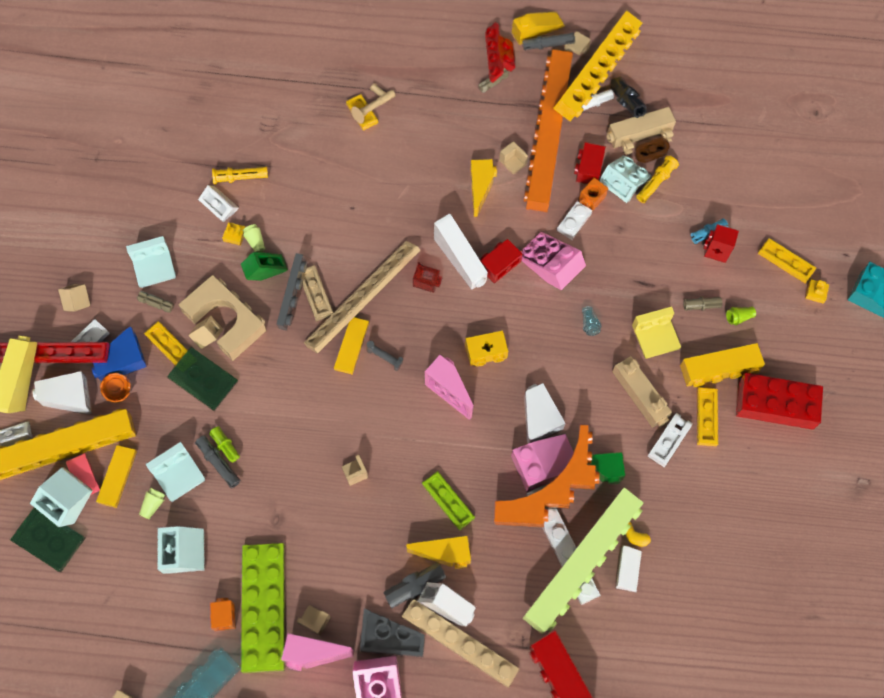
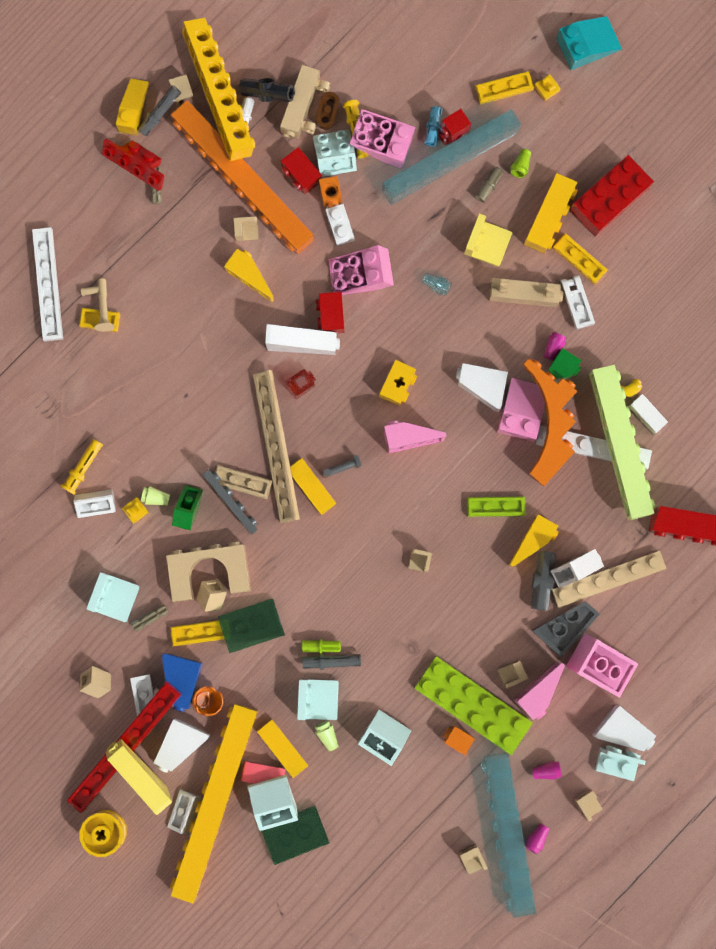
camera: 55 degrees left, 15 degrees up
(359, 61) = (47, 284): none -> white plate
(621, 445) = (554, 345): none -> dark pink cone
(666, 201) = (382, 138): none -> bright pink slope
(698, 259) = (451, 157): none -> clear light blue brick

